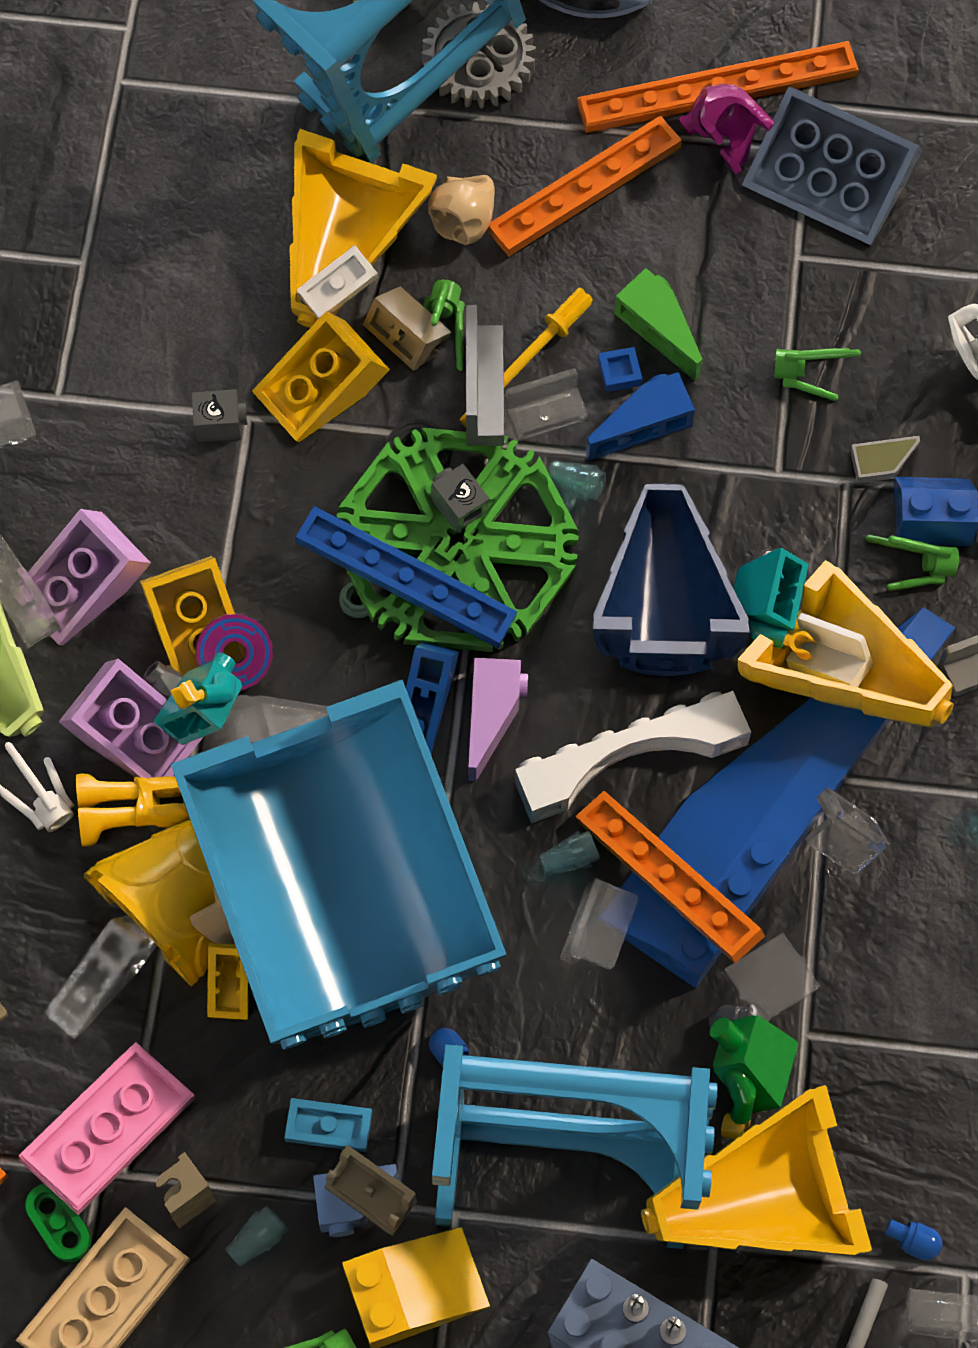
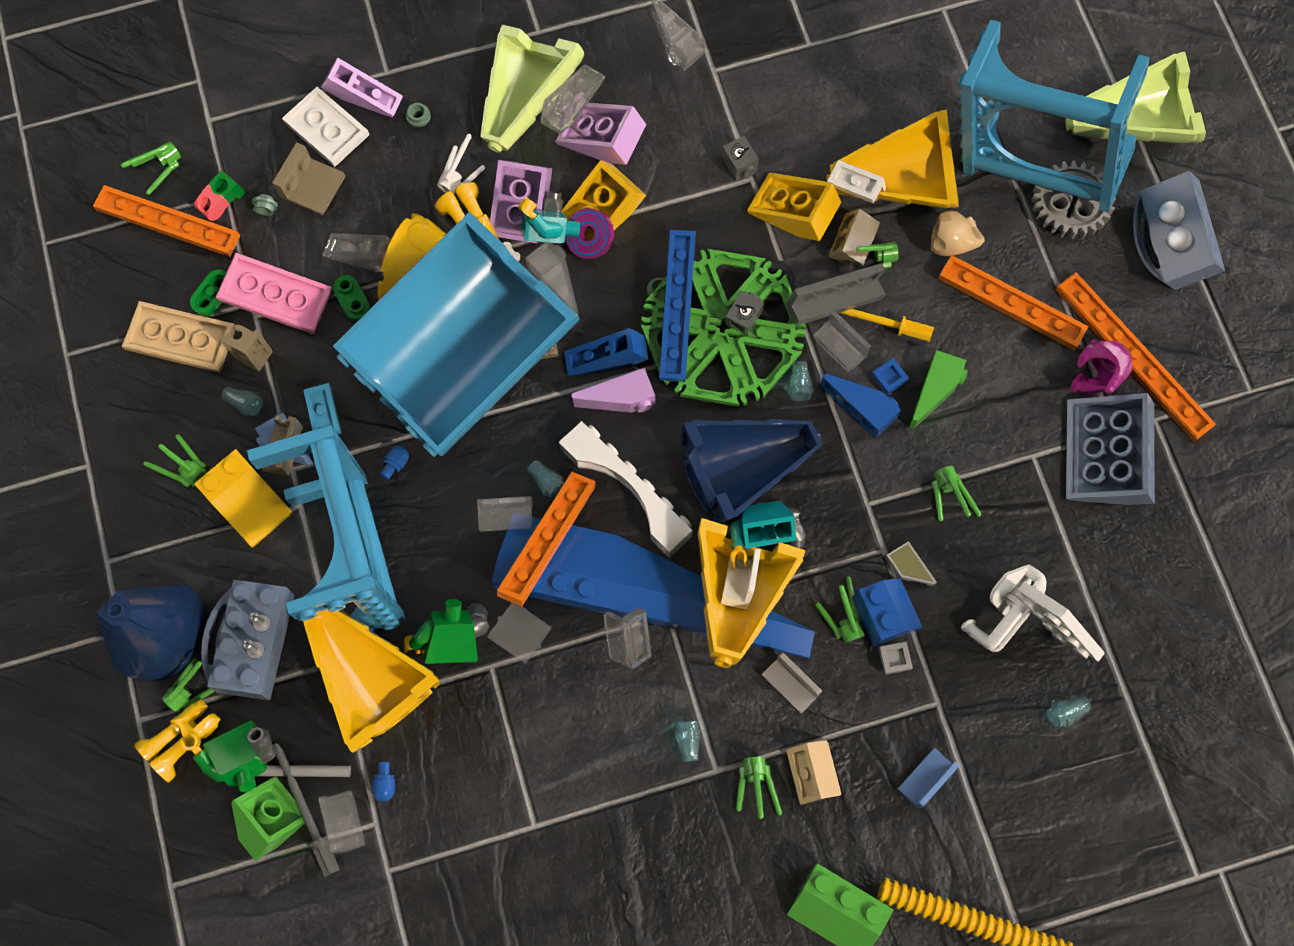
camera: 70 degrees right, 5 degrees up
(166, 1023) = (350, 297): none -> green plate

